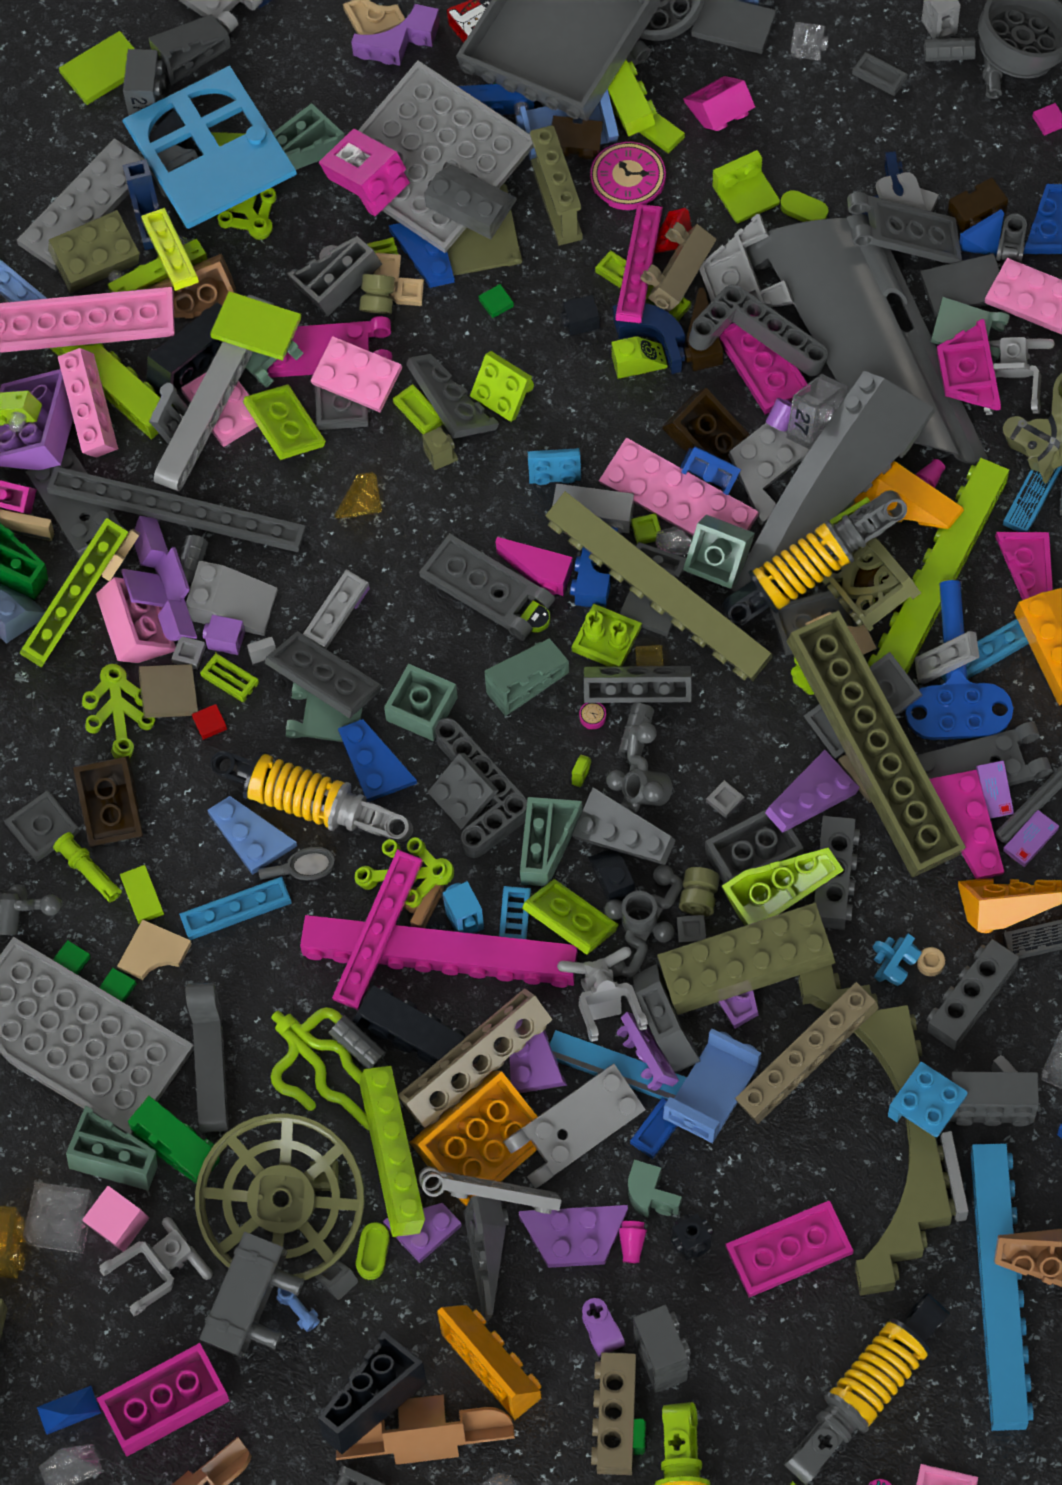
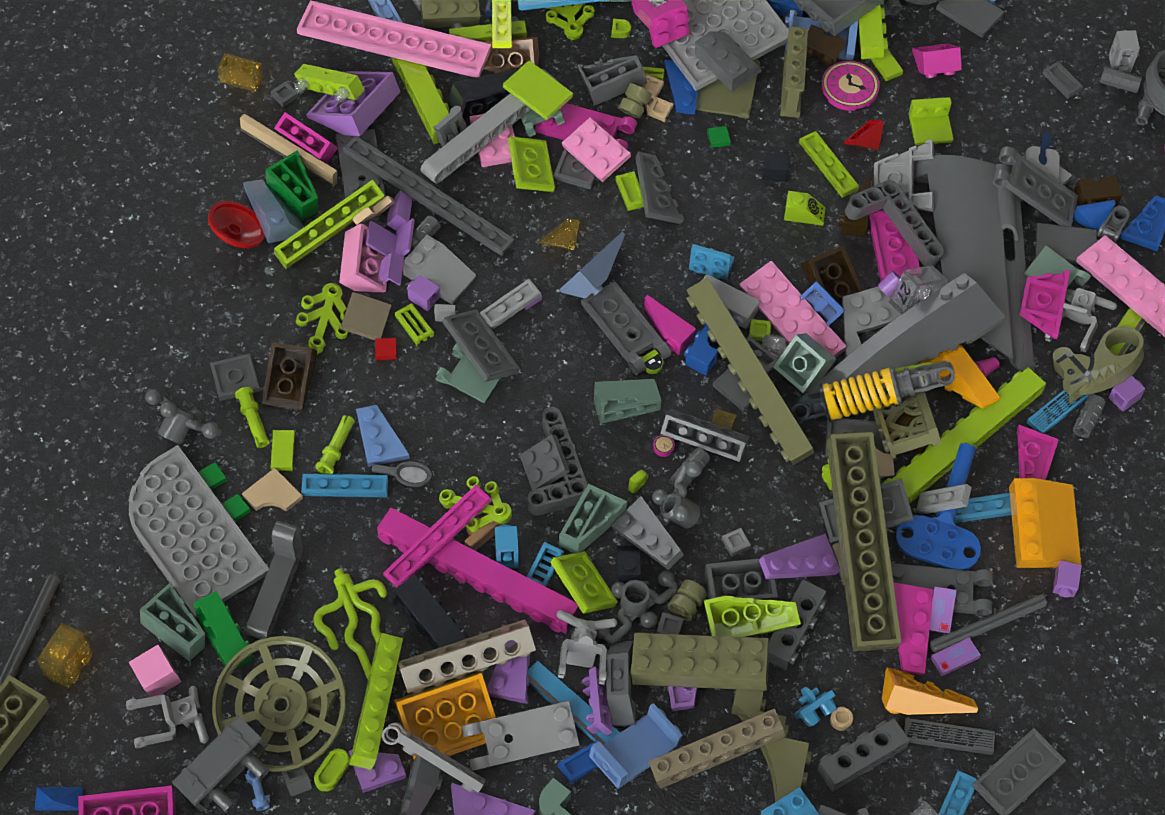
camera: 15 degrees right, 5 degrees down
(57, 1217) = (111, 655): clear brick -> none
(87, 402) = (398, 101): bright pink brick -> none
(188, 652) = (393, 295): light grey tile -> none
(203, 874) = (332, 452): none -> lime pin
(308, 795) = (431, 424): piece -> none
(317, 203) = (620, 28): none -> lime tile
(357, 1042) = (387, 612): dark grey axle -> none
(373, 762) = (490, 422): blue wing -> none
(420, 701) = (541, 388): sand green brick -> none
(421, 530) = (595, 272): none -> sand blue wedge
(439, 448) = (633, 220): olive brick -> none
(501, 386) = (696, 193): lime plate -> none
(606, 636) = (697, 393): lime plate -> none
(639, 258) = (831, 146): dark pink tile -> none
(658, 326) = (825, 190): dark blue arch -> none
(681, 268) = (861, 159): dark tan brick -> none
(803, 206) = (966, 147): lime tile -> none
(808, 41) = (1019, 39): clear brick -> none

